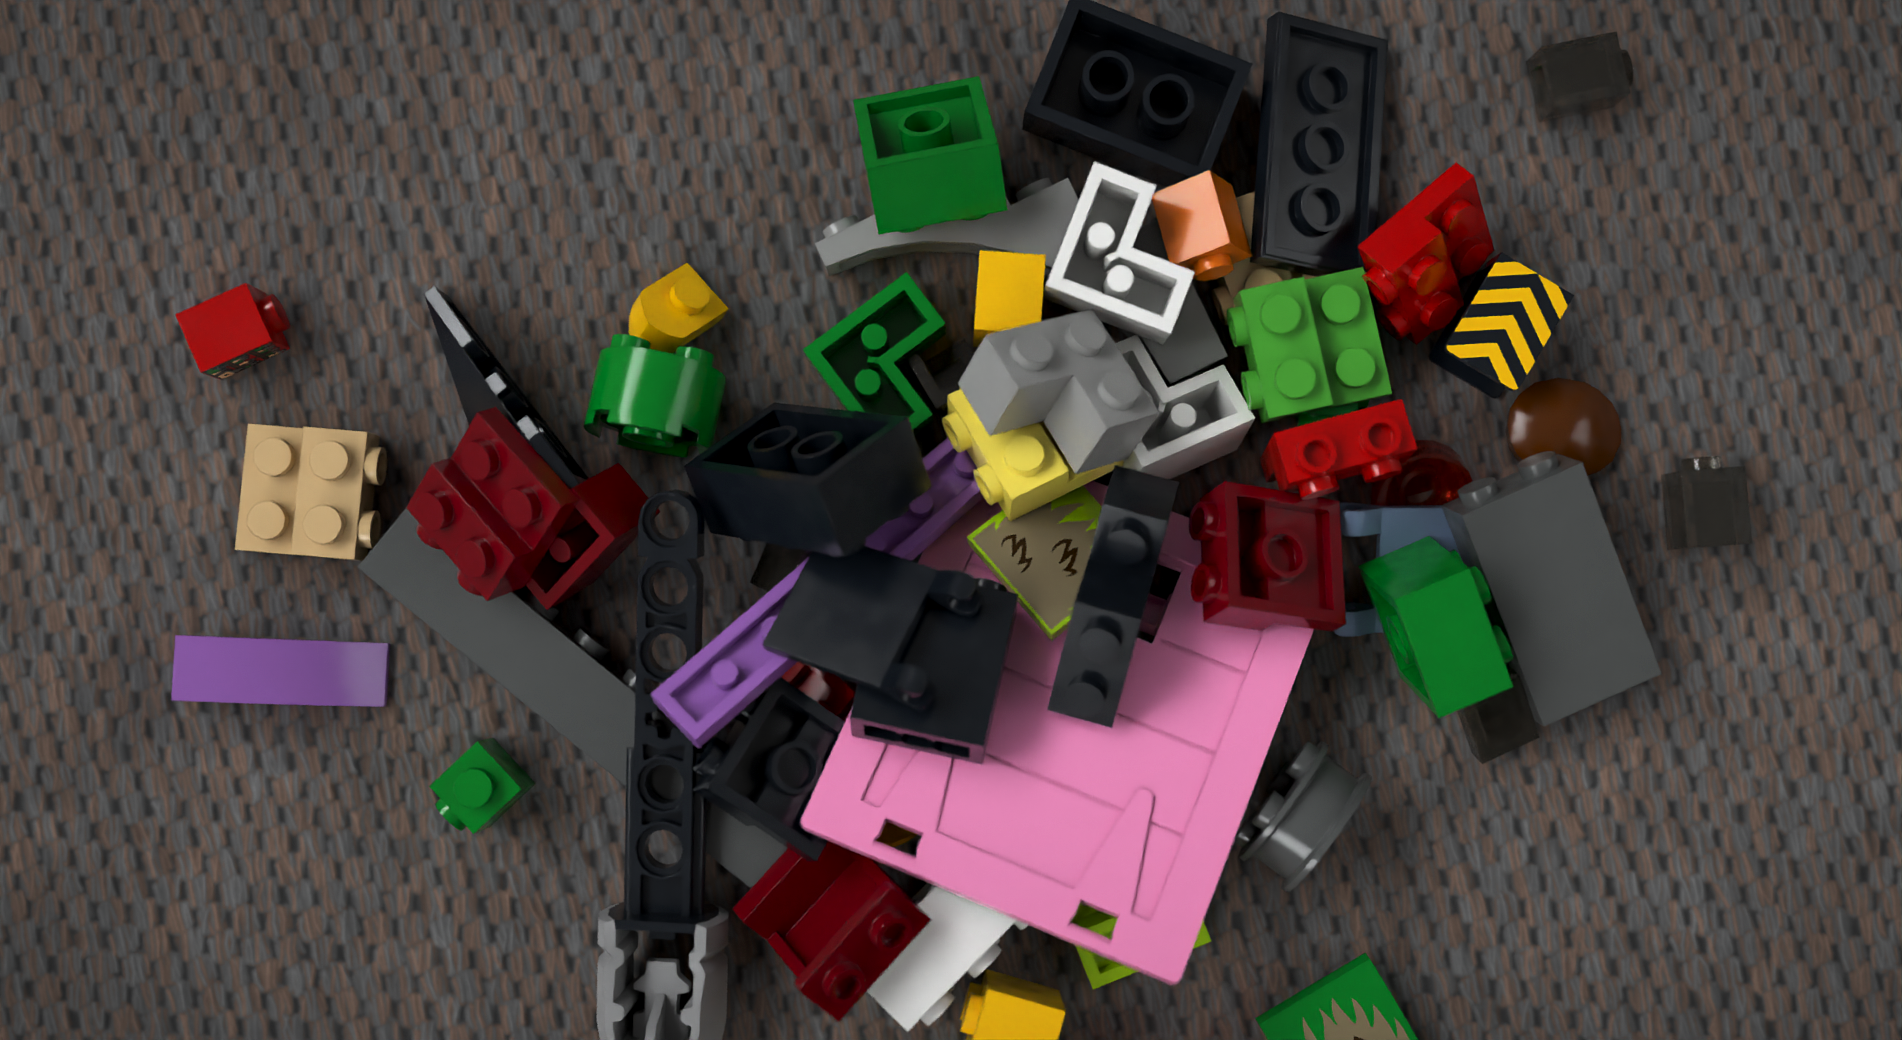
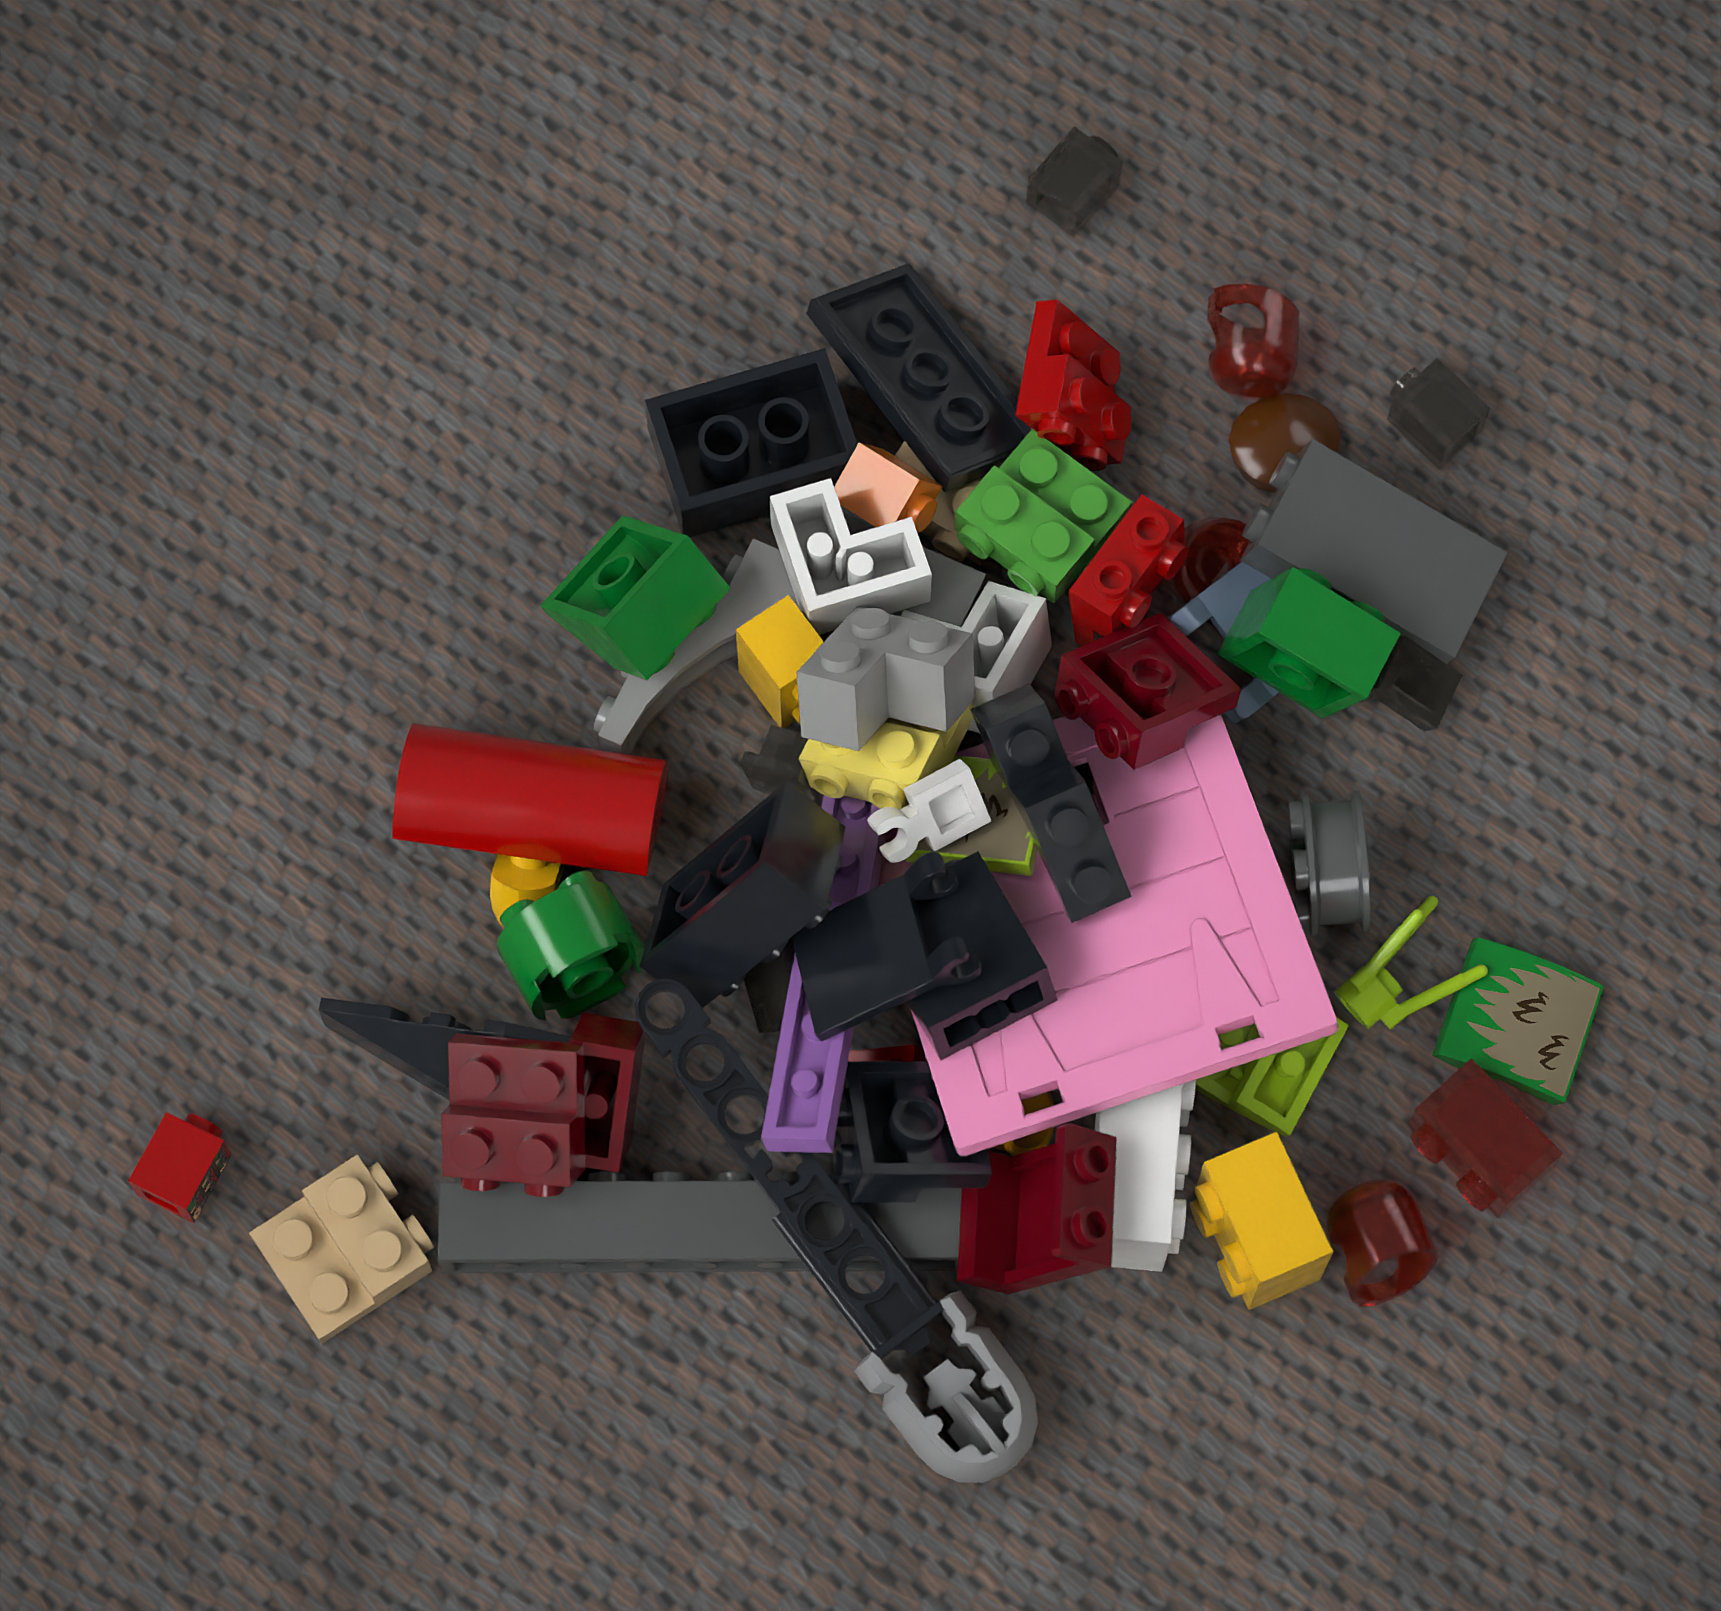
camera: 40 degrees left, 15 degrees down
(280, 671) = (437, 1401): medium lavender slope -> none
(480, 787) = (676, 1359): green brick -> none
(719, 250) = (529, 799): none -> red brick
(869, 346) = (705, 780): green brick -> none
(1018, 532) = (940, 811): none -> white plate
(1250, 933) = (1373, 990): none -> lime plant
(1500, 326) = (1171, 400): piece -> none
(1597, 342) = (1253, 360): none -> clear red helmet

